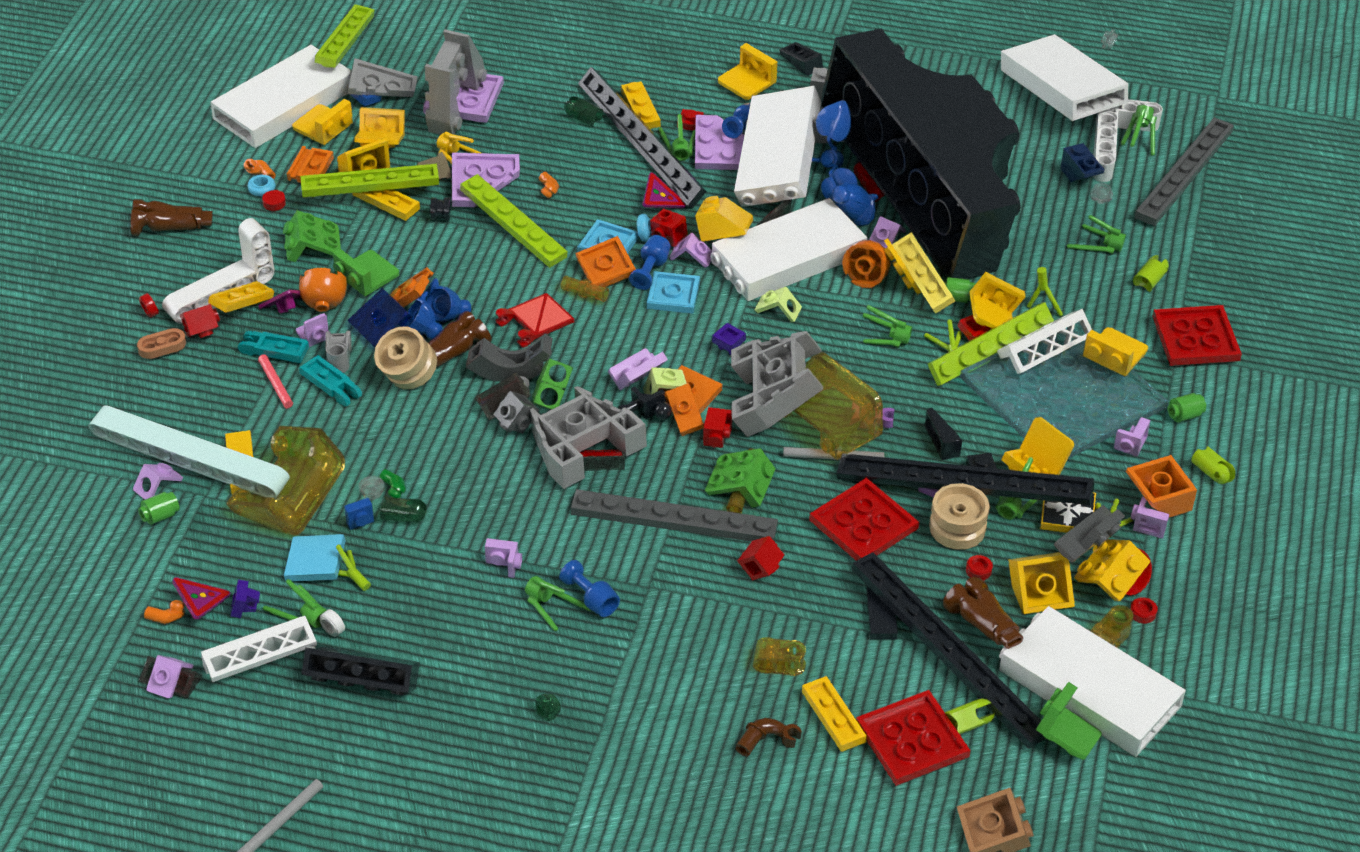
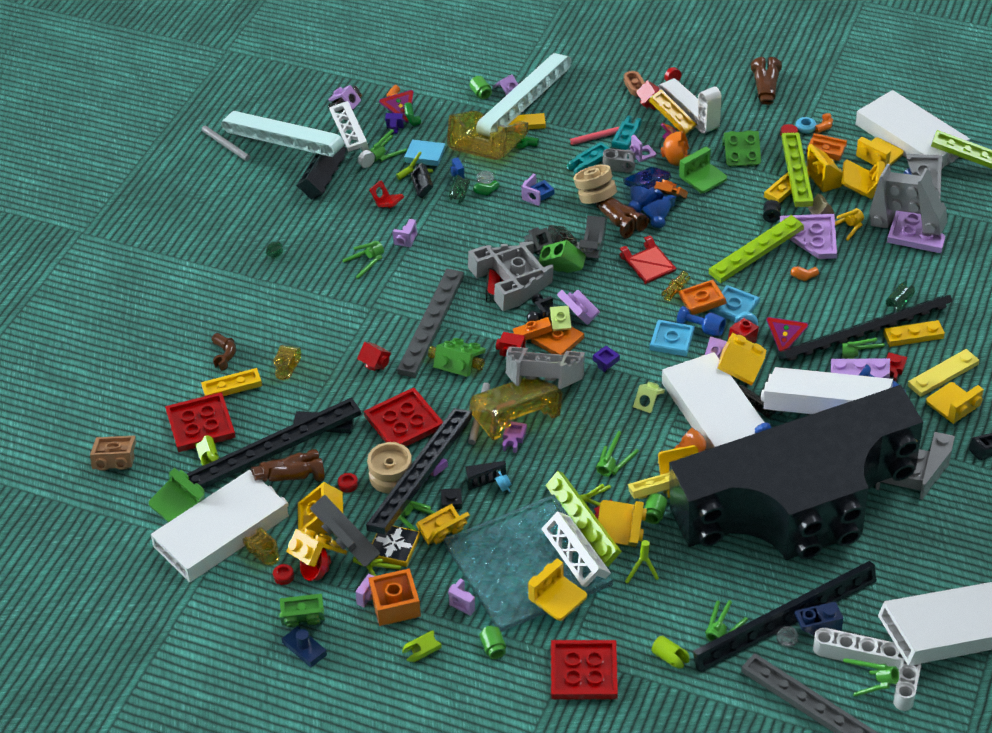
camera: 100 degrees right, 0 degrees up
(225, 581) = (410, 115): none -> green arm
(289, 722) = (283, 133): none -> light aqua beam
(382, 552) = (421, 180): none -> black plate
(401, 423) = (544, 188): none -> blue plate
(402, 437) = (526, 190): none -> lavender bracket
(427, 584) = (385, 200): none -> red bracket
(598, 596) = (358, 275): blue piece -> none
(700, 86) = (943, 373): none -> light yellow plate
(951, 416) = (503, 482): none -> medium azure plate
(1088, 198) = (773, 621): none -> black plate
(1212, 571) = (301, 610): none -> bright green bracket
(1244, 574) = (304, 646): none -> dark blue tile

